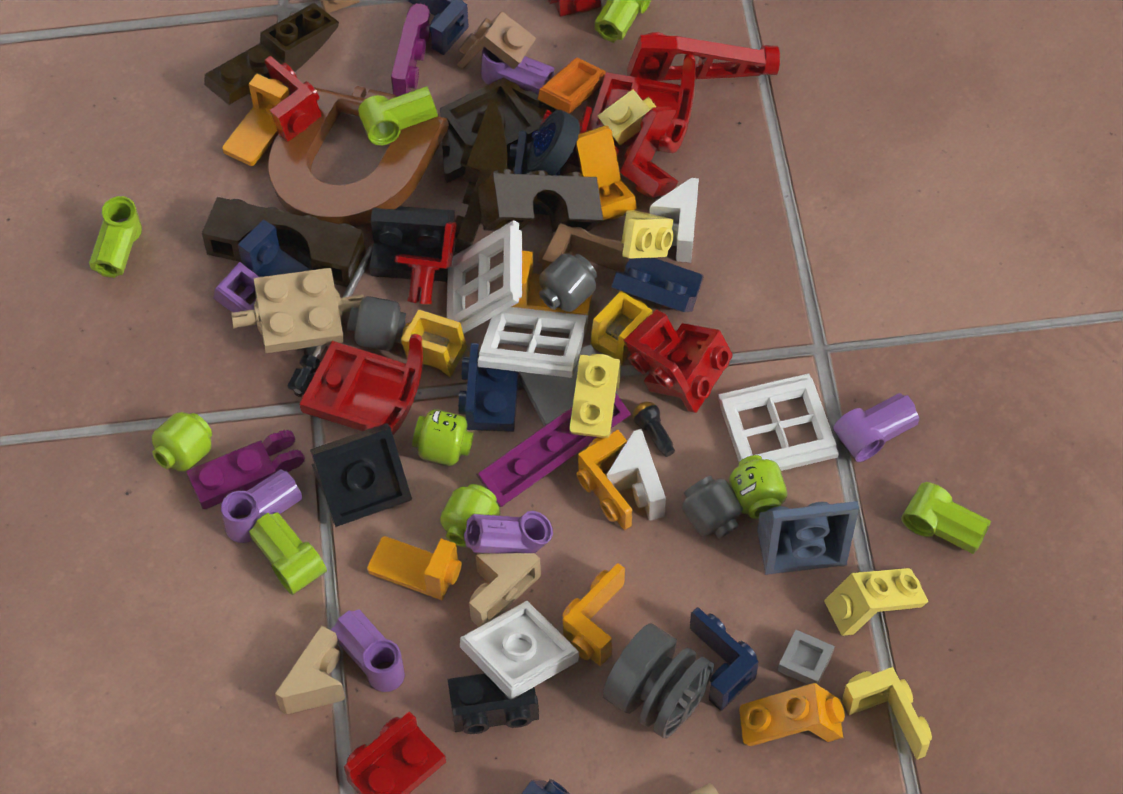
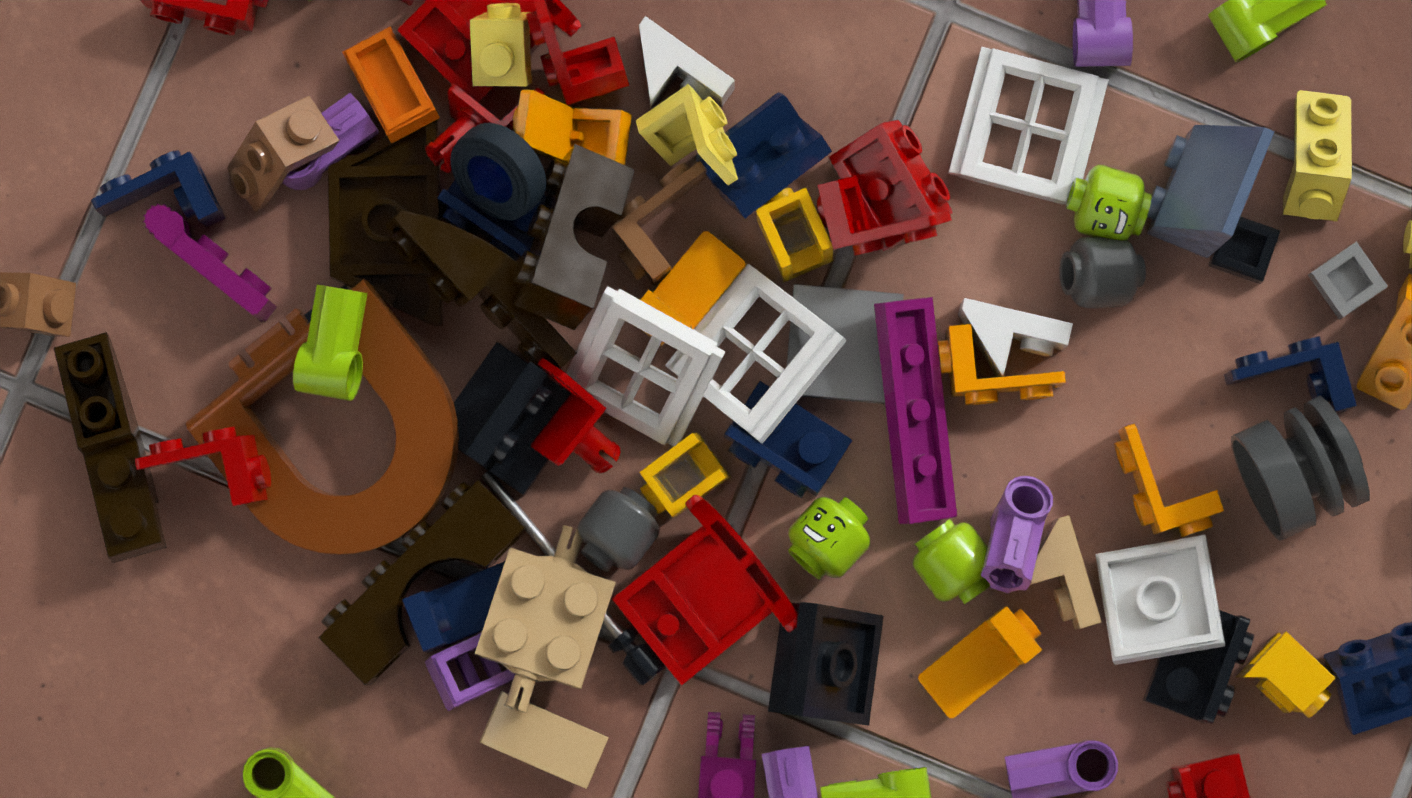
camera: 60 degrees left, 25 degrees up
(222, 354) = (544, 741): none -> tan slope
(257, 128) = (213, 523): light orange bracket -> none
(515, 756) = (1289, 676): none -> yellow window
(567, 282) = (705, 267): dark grey head -> none
(595, 395) = (891, 326): light yellow bracket -> none
(648, 417) = (930, 273): black piece -> none
(786, 589) = (1247, 251): none -> black tile

